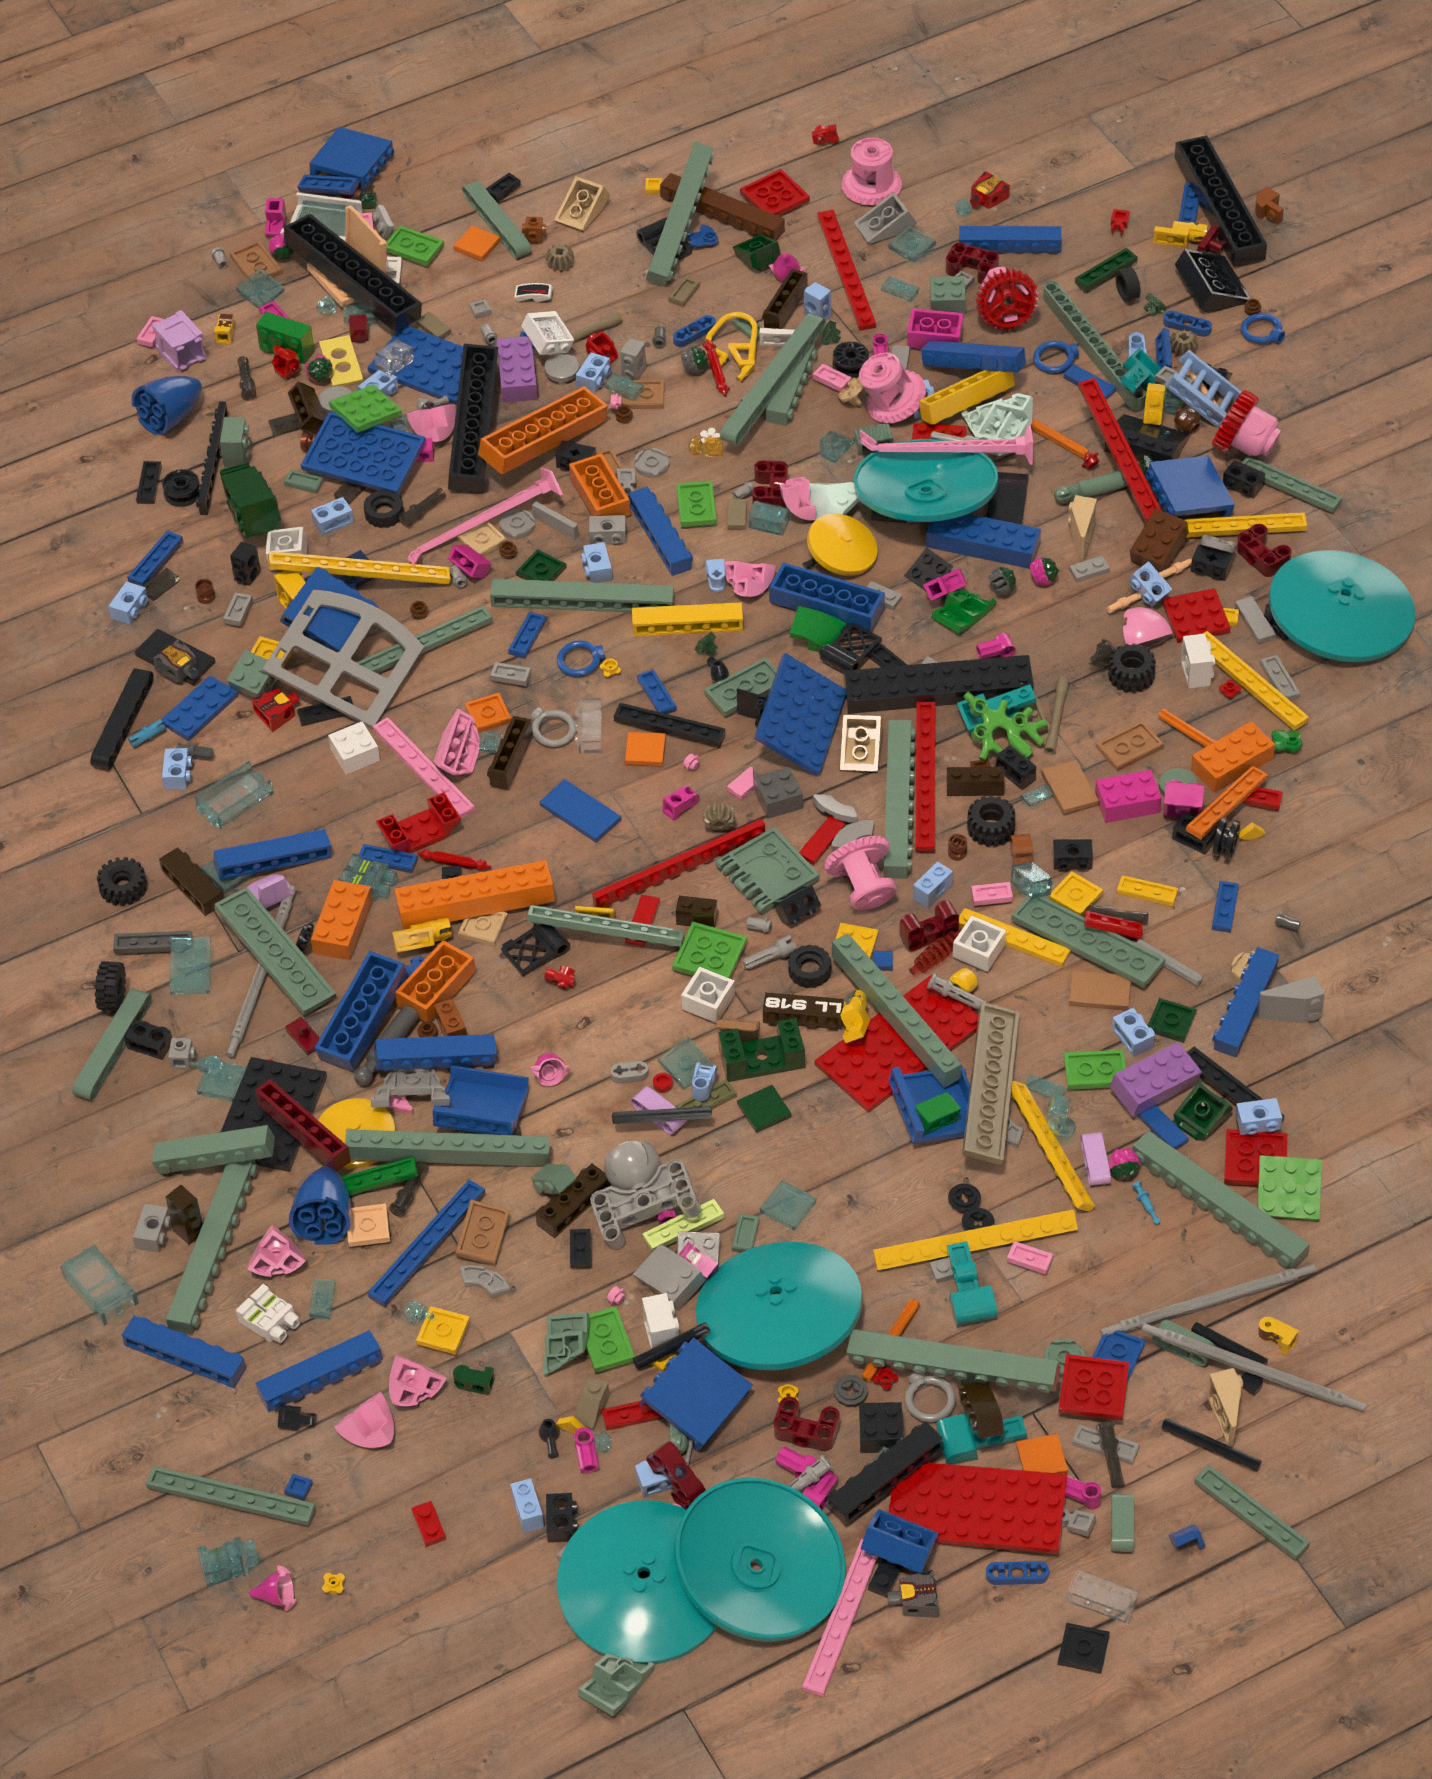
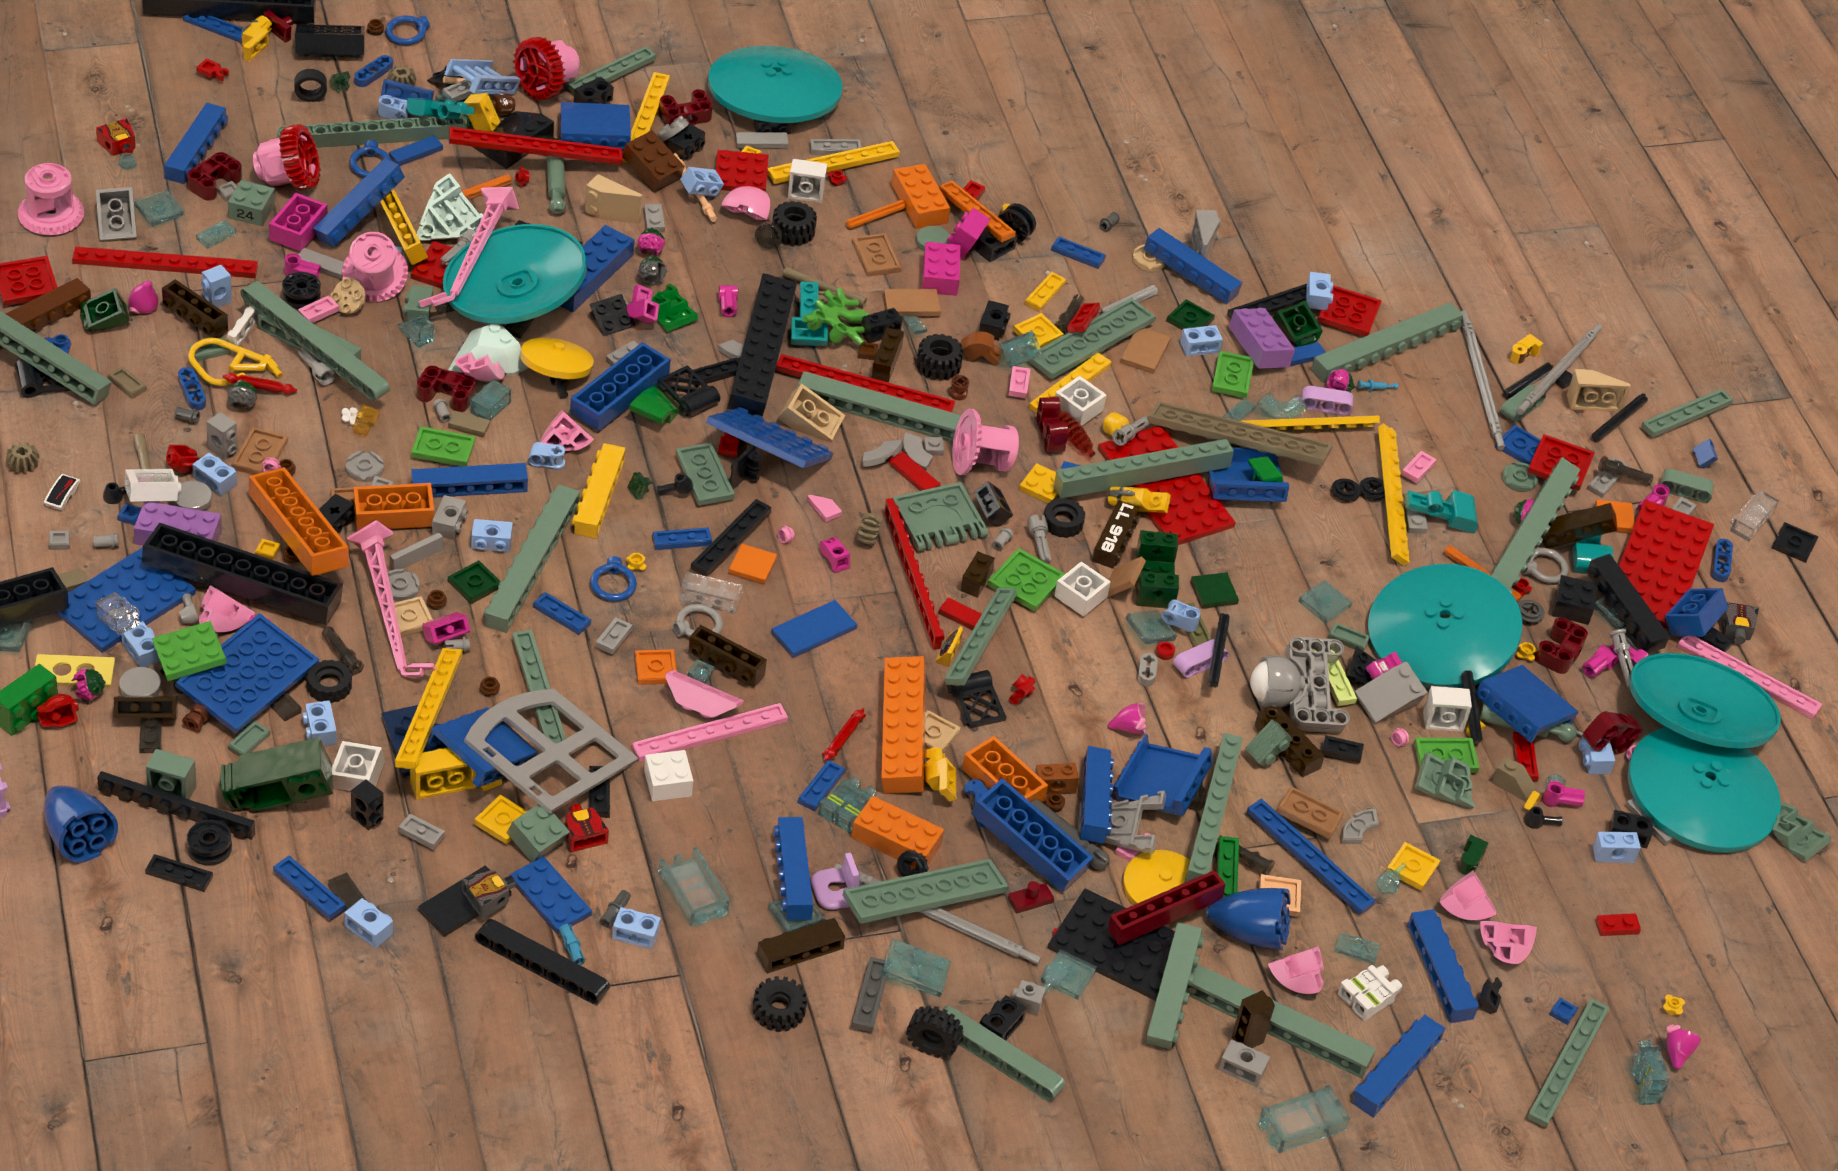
camera: 85 degrees left, 5 degrees down
(204, 591) = (382, 853): copper wheel -> none
(246, 383) = (69, 754): clear smoke pin -> none
(358, 328) = (37, 640): dark red brick -> none
(422, 828) = (793, 743): red slope -> none
(451, 872) = (863, 742): black plate -> none
(624, 386) = (250, 455): clear light blue plate -> none
(778, 792) = (851, 483): dark grey brick -> none
(932, 885) = (998, 411): light blue brick -> none
(1106, 269) = (274, 97): dark green plate -> none
(1287, 740) = (909, 160): green plate -> none
(1290, 1187) = (1387, 298): bright green plate -> none

